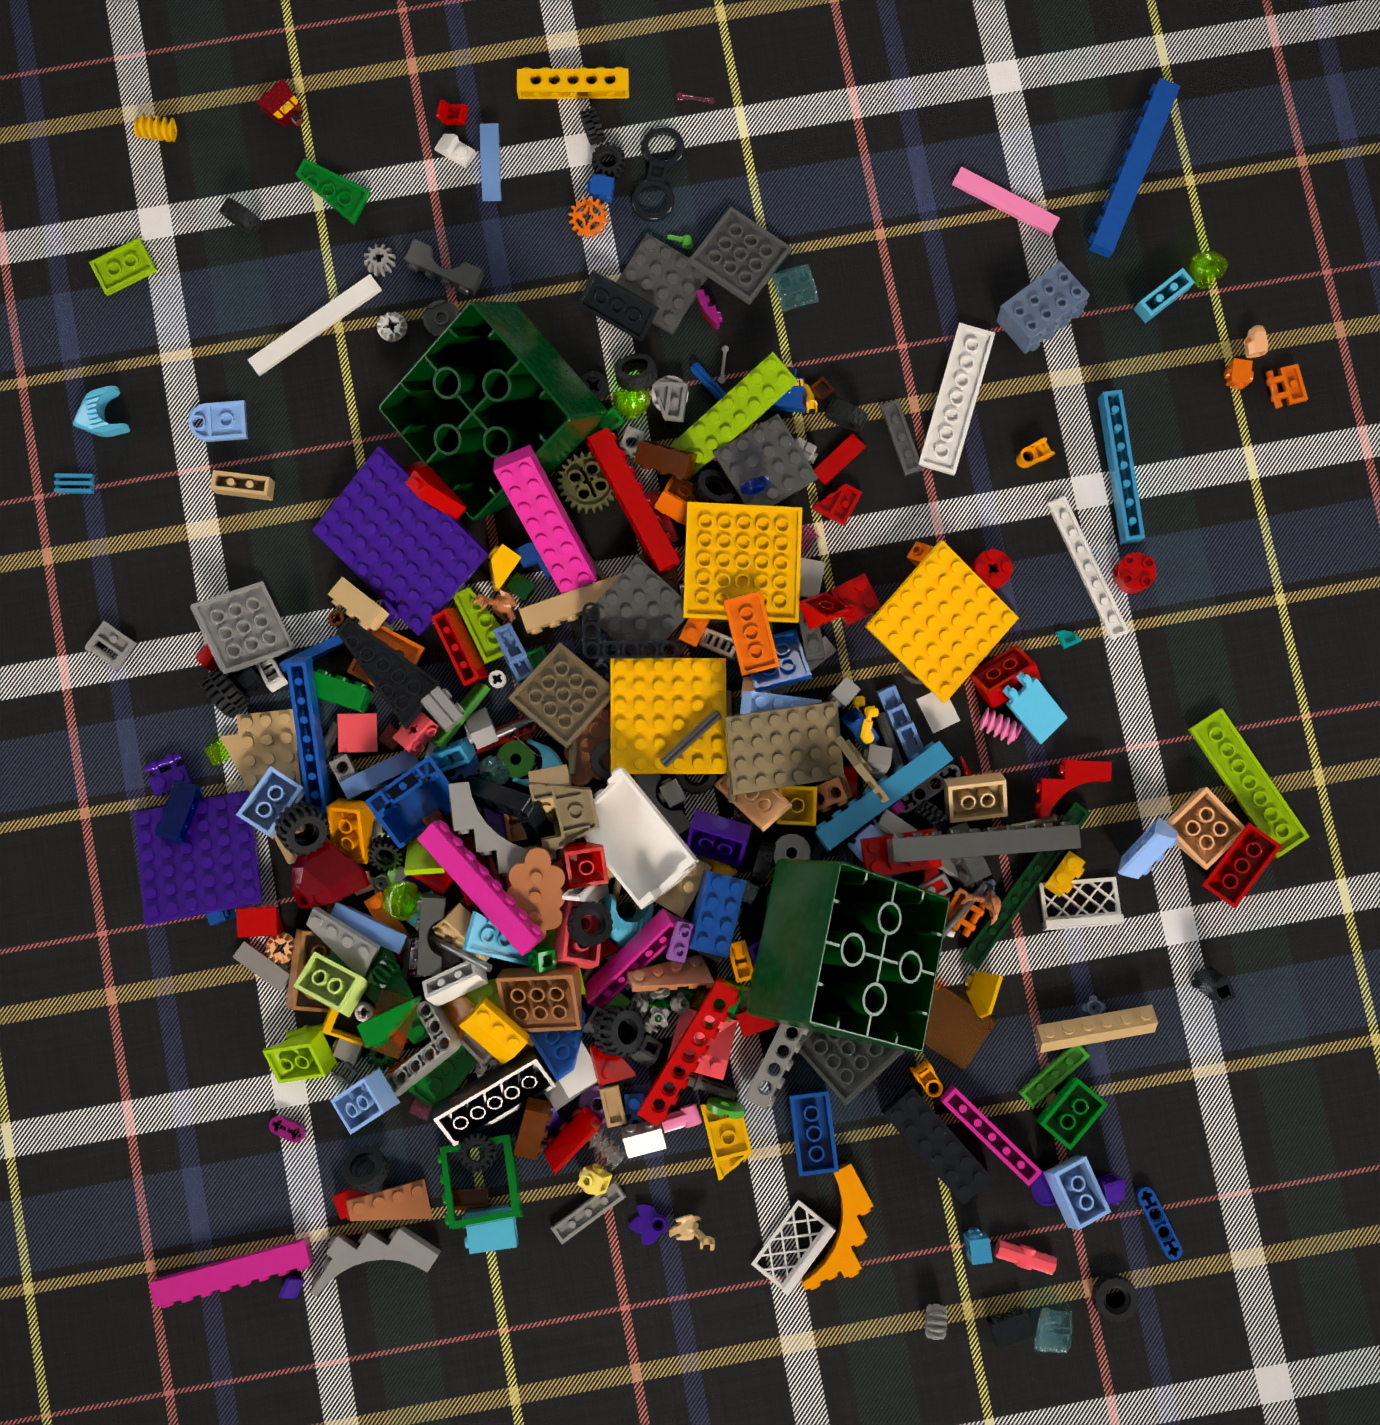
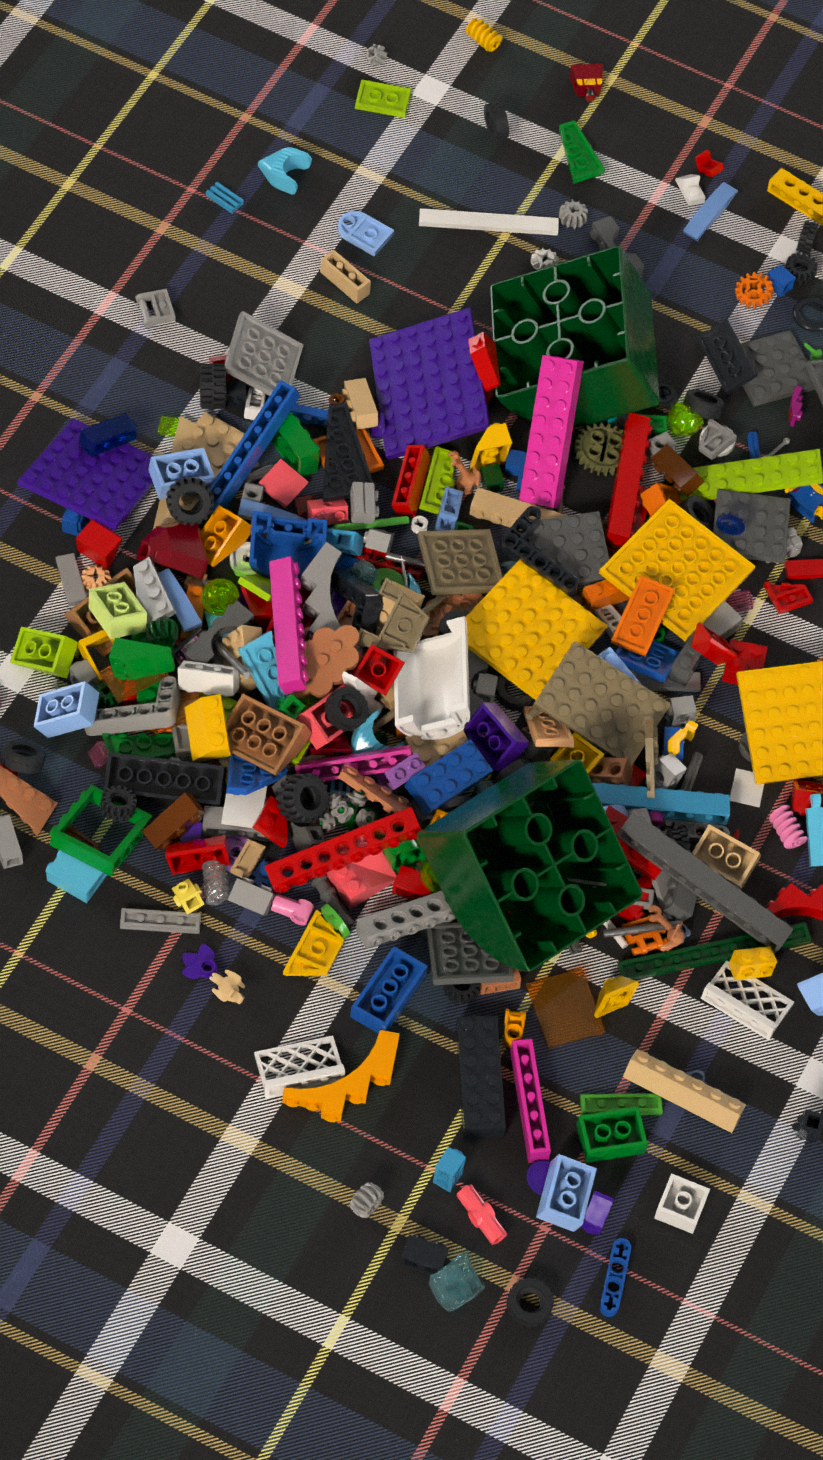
camera: 35 degrees right, 25 degrees down
(81, 226) = (376, 54): none -> light grey gear
(164, 781) = (109, 412): dark purple plate -> none
(383, 860) = (225, 563): black tyre -> none
(690, 738) = (532, 651): dark grey axle -> none
(900, 721) = (711, 765): medium blue slope -> none
(1165, 1126) = (682, 1203): none -> white brick

